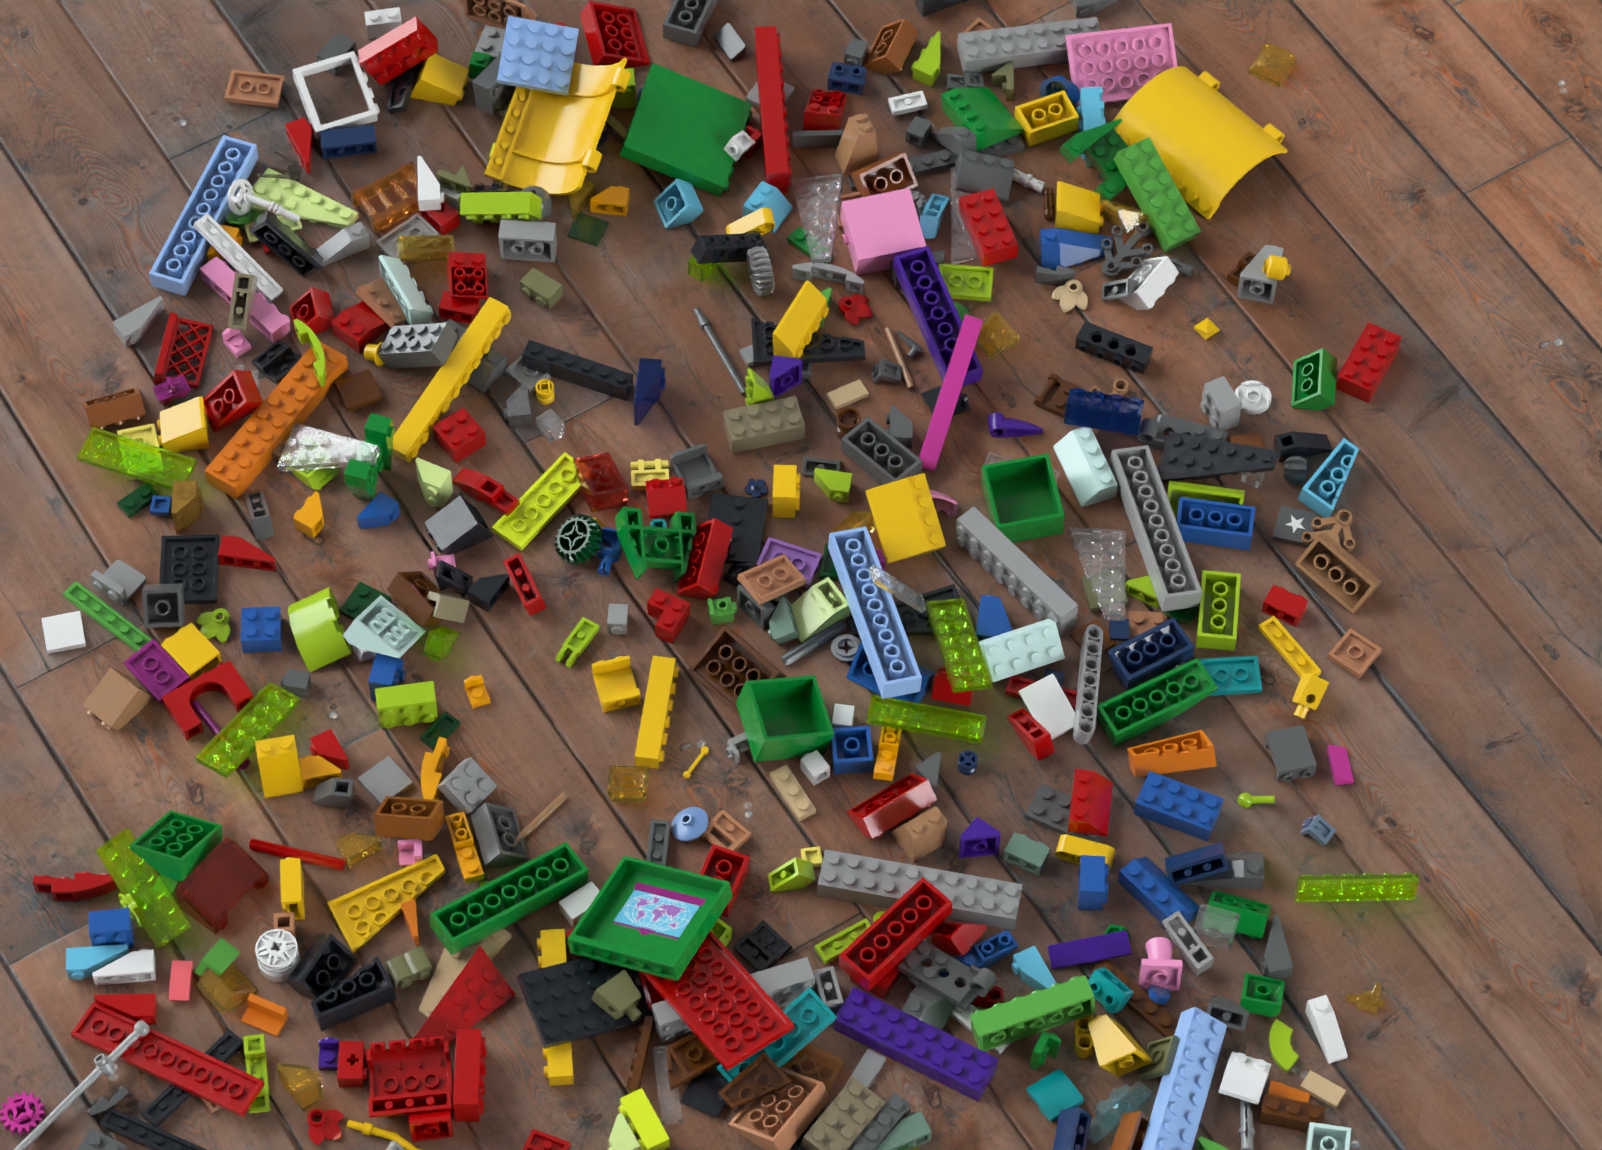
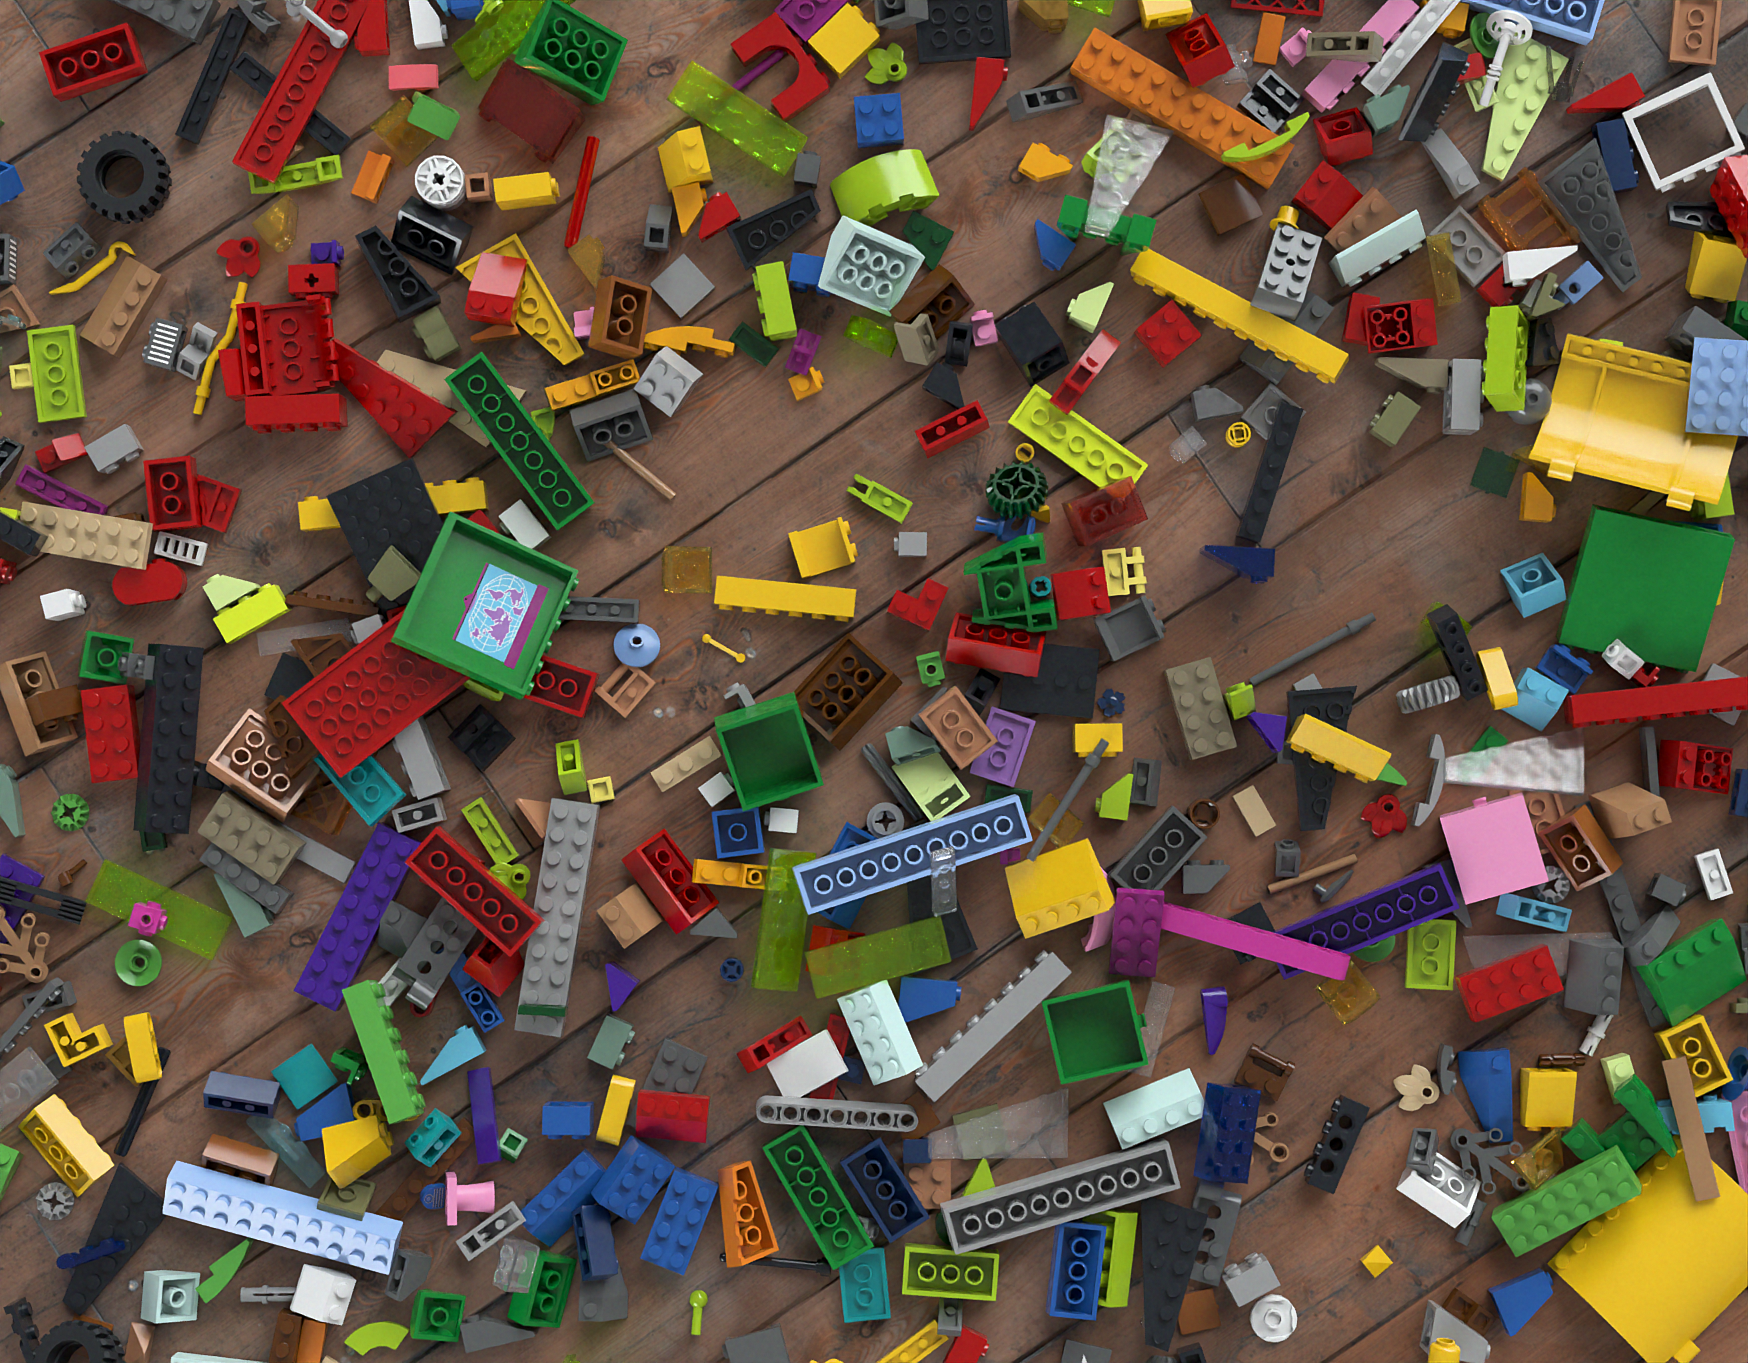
camera: 90 degrees right, 30 degrees up
(224, 360) = (1269, 38): none -> orange slope
(294, 277) = (1385, 111): none -> sand green slope
(346, 714) = (768, 229): none -> black wedge
(376, 911) = (496, 289): none -> slope
(382, 155) = (1588, 202): none -> dark grey wing
(443, 158) = (1584, 278): none -> medium blue torso
(451, 690) = (803, 352): none -> magenta hips
(506, 271) = (1419, 372): none -> dark tan slope
(544, 534) = (1021, 455): none -> yellow hinge
(742, 187) = (1564, 668): none -> blue bracket
(803, 485) = (1092, 761): none -> dark grey bar
(832, 905) = (536, 812): none -> nougat slope
(943, 469) = (1136, 932): none -> magenta plate
(998, 888) = (543, 1010): none -> dark green tile
(1059, 168) = (1616, 1070): none -> yellowish green slope
(1086, 1074) = (329, 1111): none -> blue slope
(1100, 114) = (1690, 1128): none -> medium nougat tile
(1143, 835) = (632, 1179): none -> blue brick
(1216, 705) = (820, 1266): none -> black piece
(1234, 235) = (1521, 1298): none -> blue slope
(1253, 613) = (950, 1316): none -> dark grey slope

